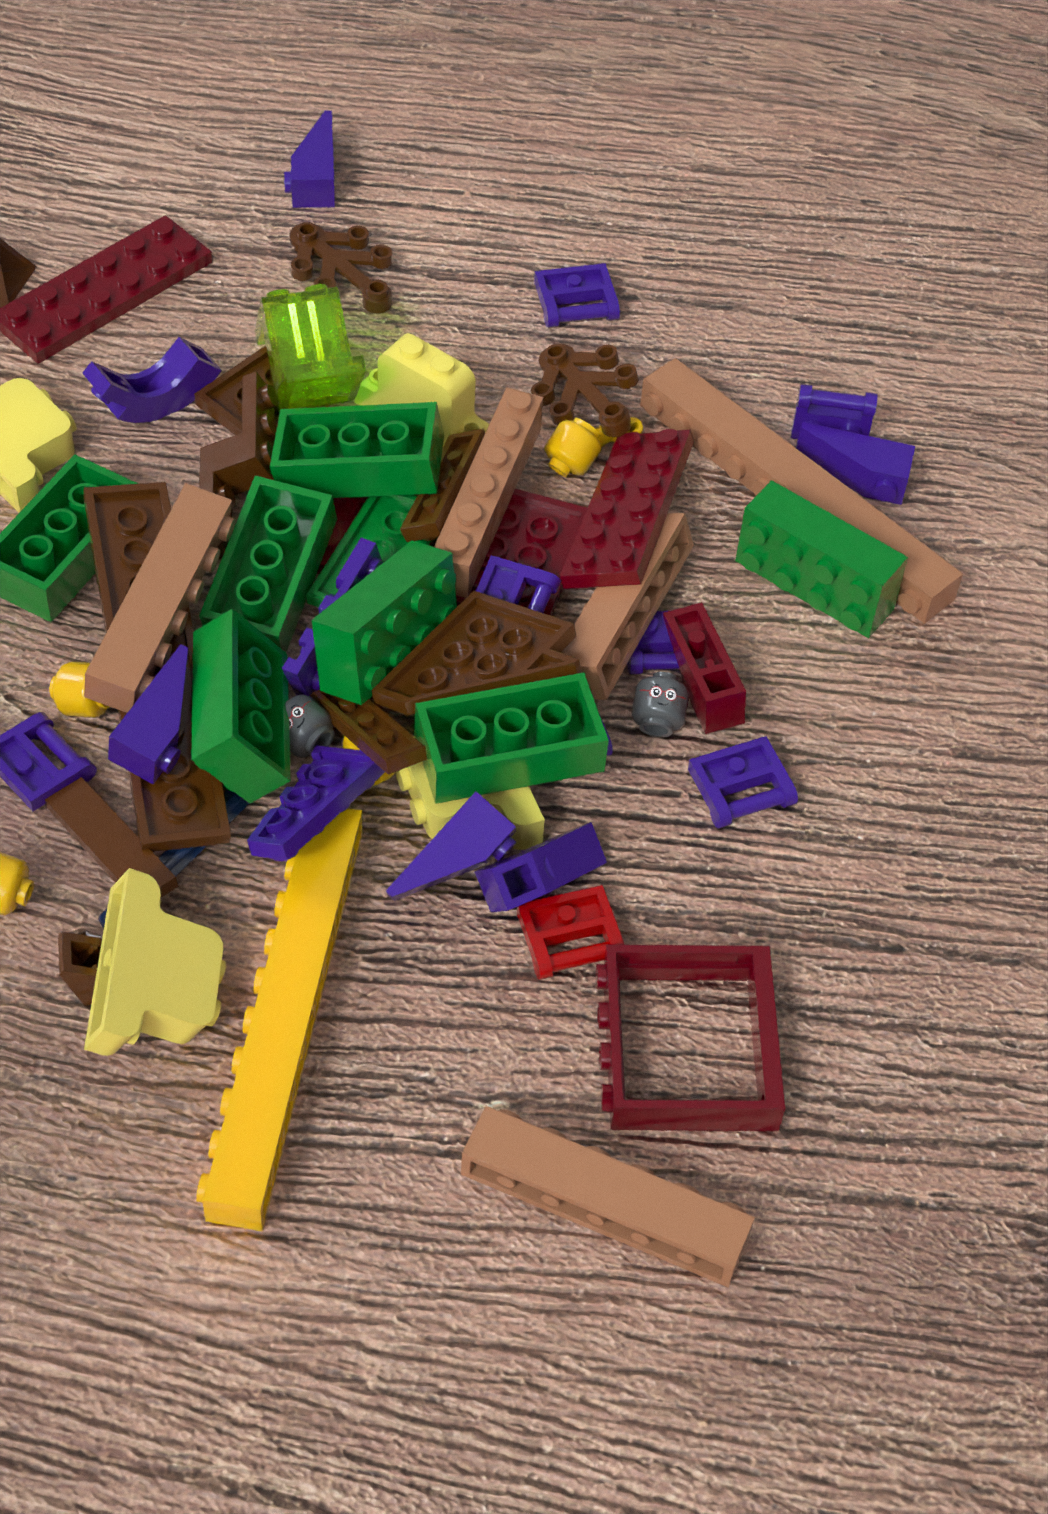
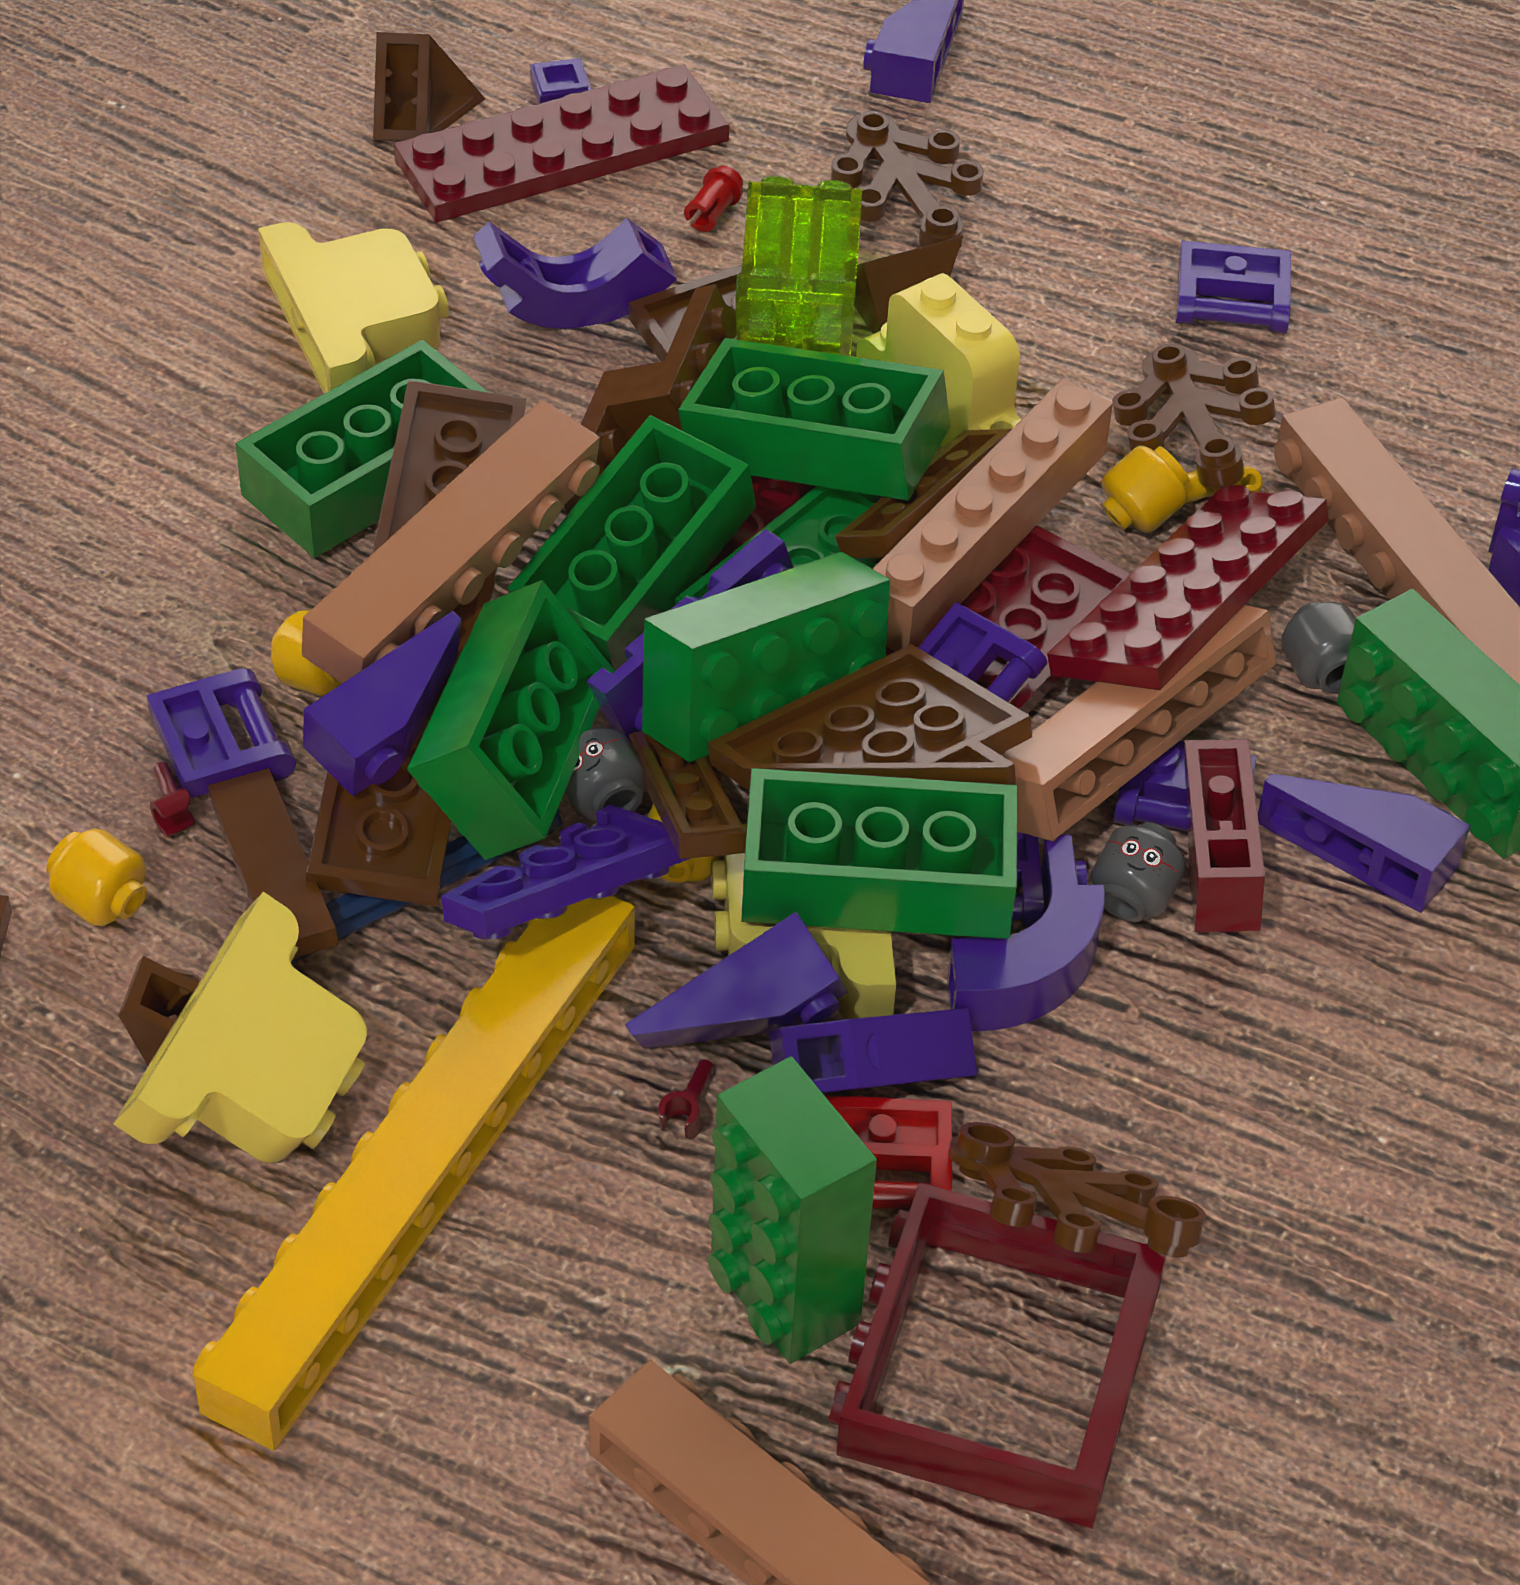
camera: 20 degrees right, 5 degrees down
(26, 822) = (171, 810): none -> dark red hand
(83, 243) = (558, 79): none -> tile
(223, 299) = (720, 189): none -> red pin
(374, 335) = (891, 274): none -> reddish brown slope
(437, 928) = (687, 1101): none -> dark red hand
(546, 987) = (790, 1209): none -> green brick
(614, 794) = (1038, 967): none -> dark purple arch
(686, 914) = (989, 1155): none -> reddish brown plant
(717, 525) = (1319, 643): none -> dark grey head
(738, 770) = (1224, 993): dark purple plate -> none
(791, 644) = (1369, 833): none -> dark purple slope

